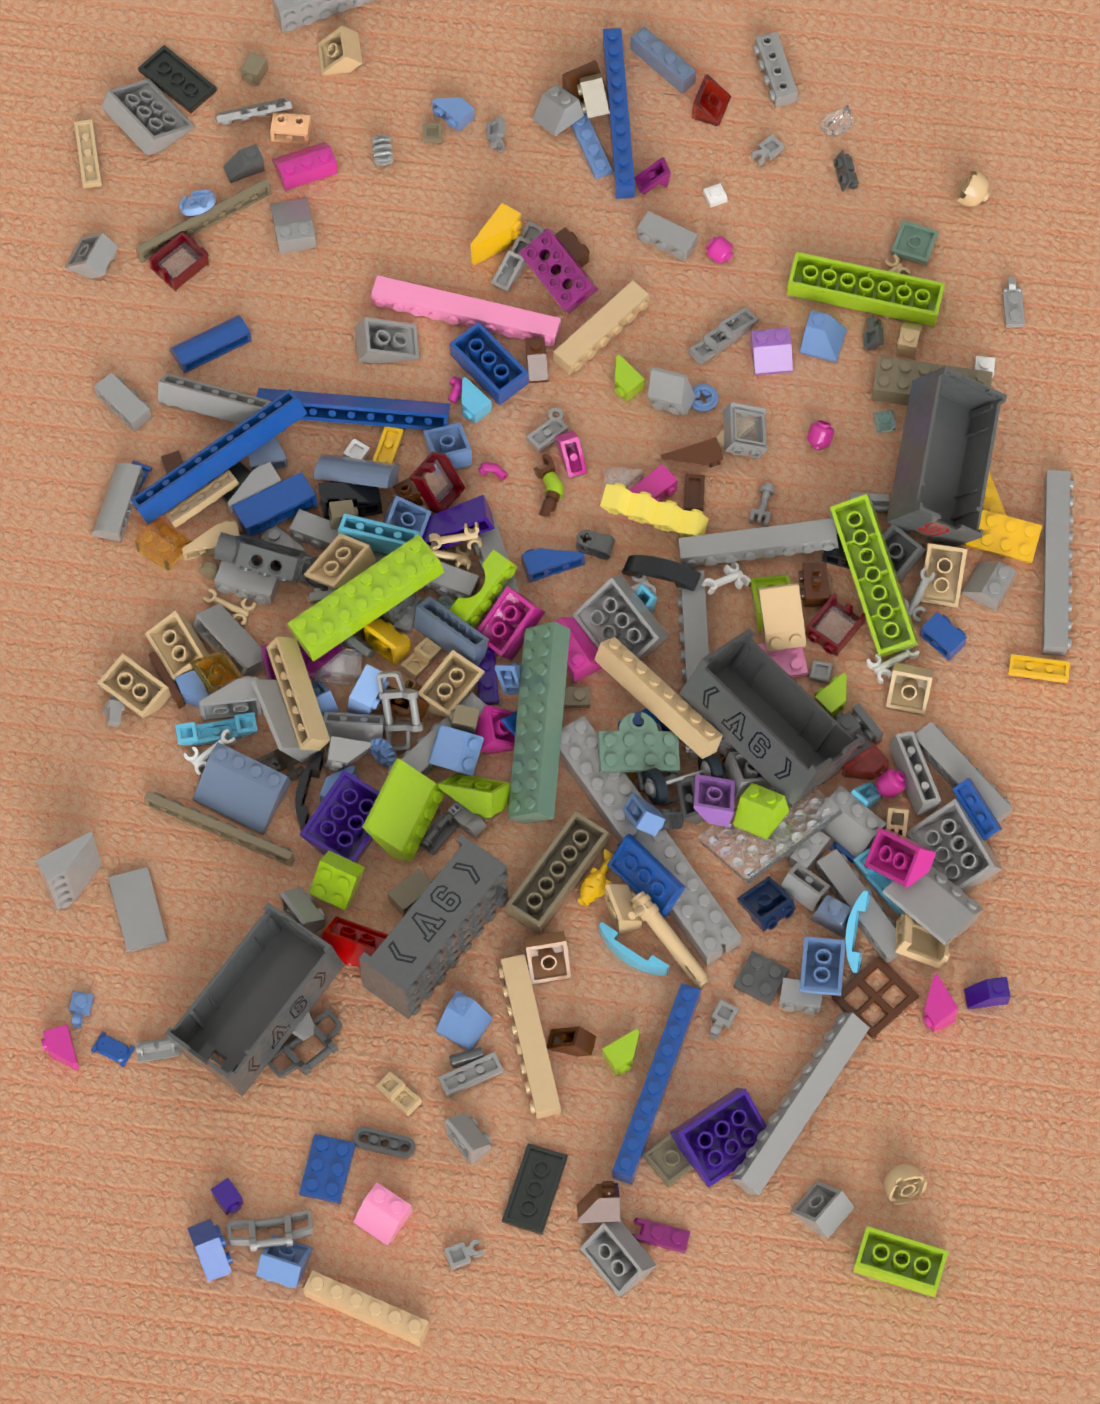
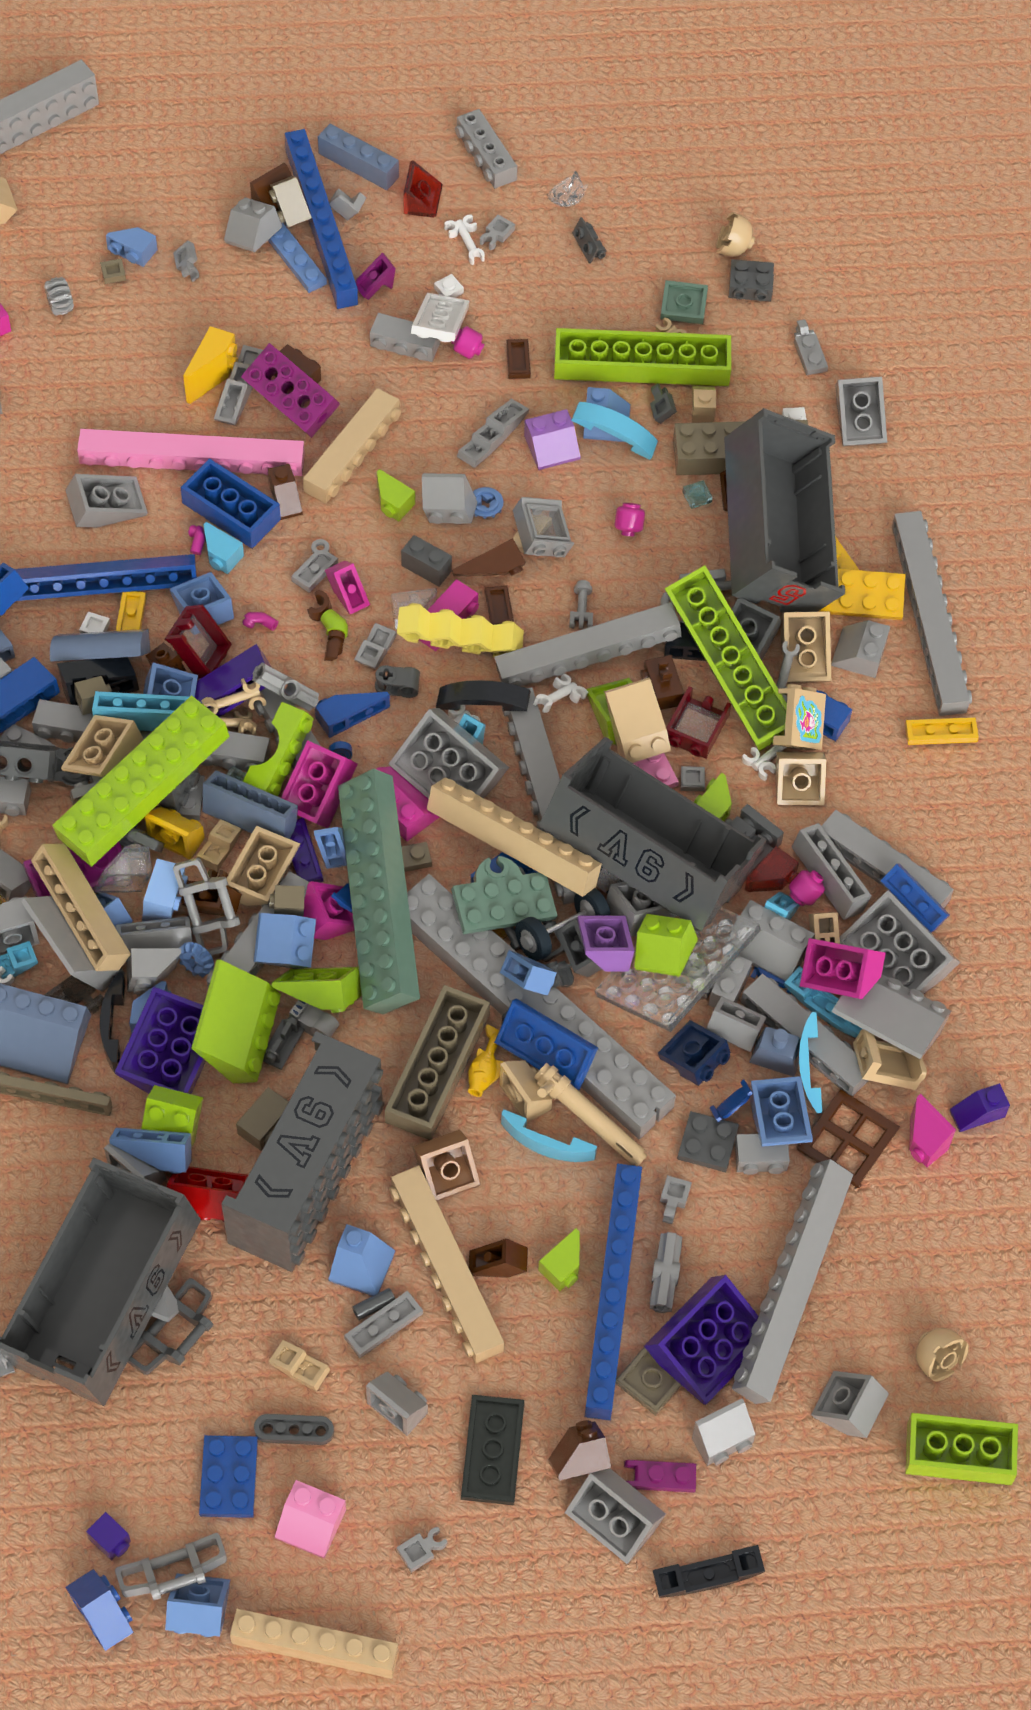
camera: 15 degrees left, 5 degrees down
(322, 902) = (157, 1148): none -> medium blue slope
(506, 541) = (276, 681): none -> light grey piece
(536, 596) = (341, 748): none -> blue tile
(583, 510) = (376, 646): none -> light grey slope
(641, 442) = (426, 560): none -> dark grey brick
(642, 103) = (345, 205): none -> light grey panel
(679, 1317) = (709, 1574): none -> black slope
(699, 224) = (440, 317): none -> white plate
(701, 1077) = (666, 1272): none -> light grey piece
(716, 1212) = (724, 1433): none -> slope
(740, 140) = (463, 227): none -> white bar
(760, 271) = (518, 358): none -> reddish brown tile
(787, 950) = (733, 1102): none -> blue piece
(828, 349) = (618, 425): none -> medium azure slope
(921, 638) = (803, 718): none -> tan panel
(978, 231) = (751, 280): none -> dark grey plate
(1043, 371) = (861, 411): none -> light grey slope

